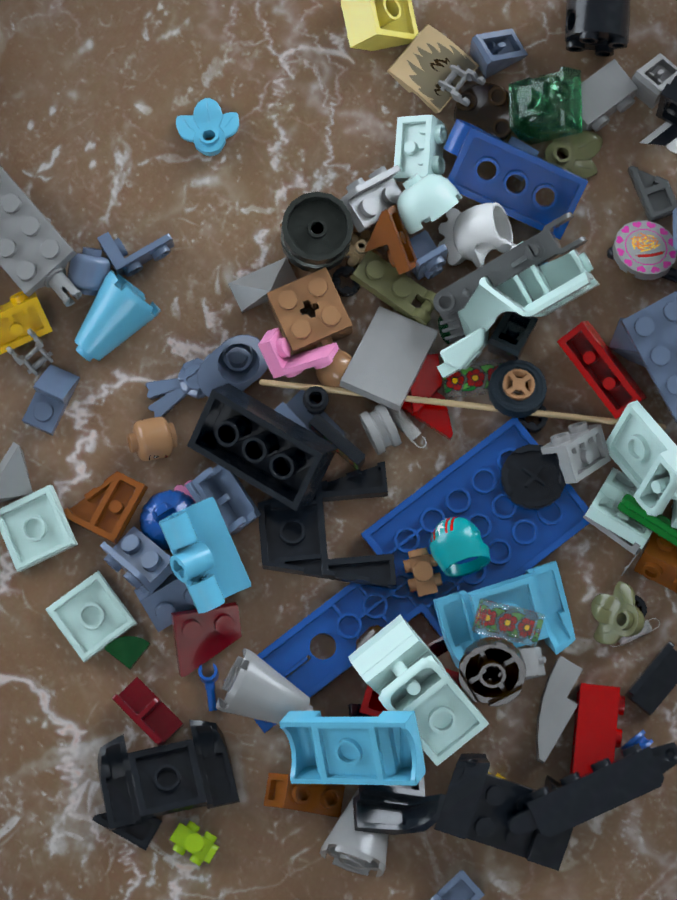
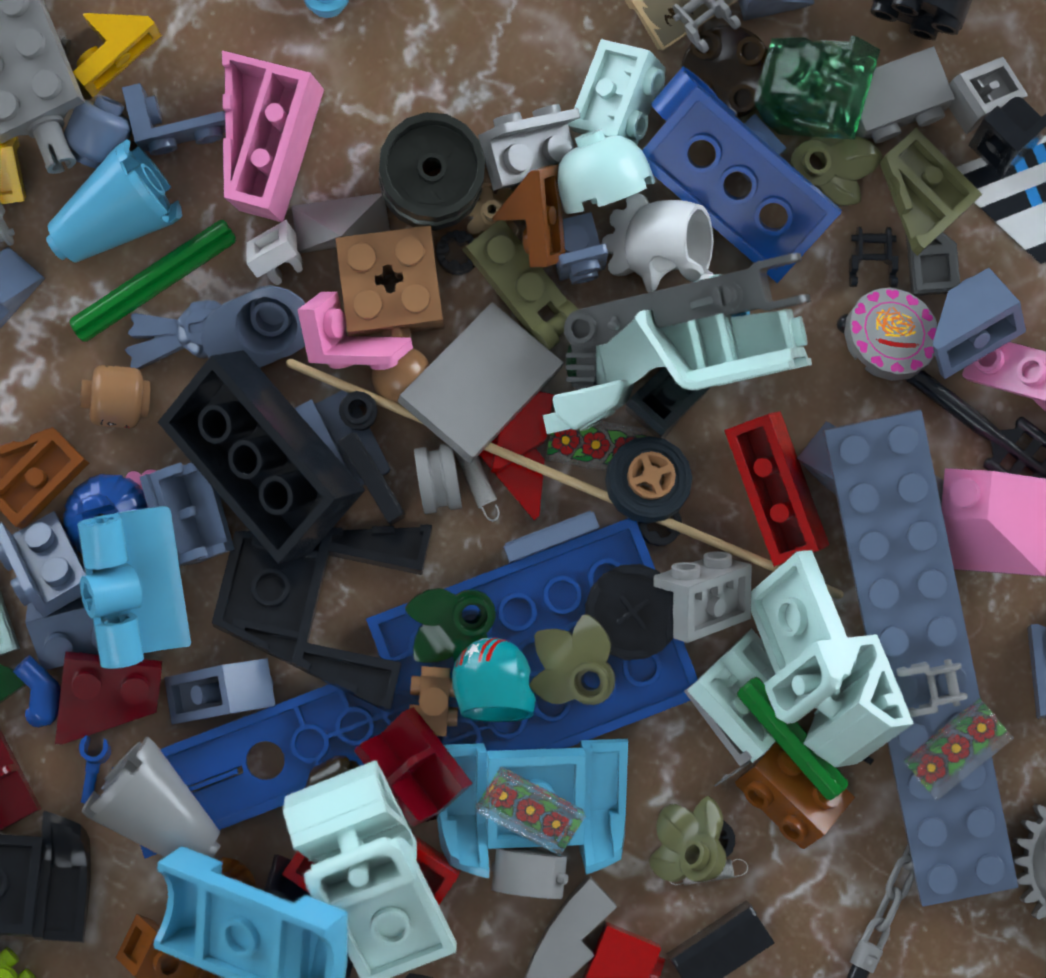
camera: 15 degrees right, 5 degrees up
(86, 208) = (124, 41): none -> yellow slope
(152, 358) = (152, 281): none -> green axle
(164, 646) = (43, 694): none -> blue arm
(199, 238) = (267, 132): none -> bright pink wedge
(226, 313) = (272, 250): none -> white tile
(279, 609) = (219, 691): none -> sand blue slope
(414, 524) = (443, 629): none -> dark green plate
(426, 614) = (415, 767): none -> dark red panel
(464, 444) = (551, 536): none -> sand blue tile
(492, 671) = (482, 879): dark brown cylinder -> none
(501, 518) = (569, 658): none -> olive plate
(622, 190) = (886, 238): none -> black piece
(637, 151) = (925, 189): none -> olive wing

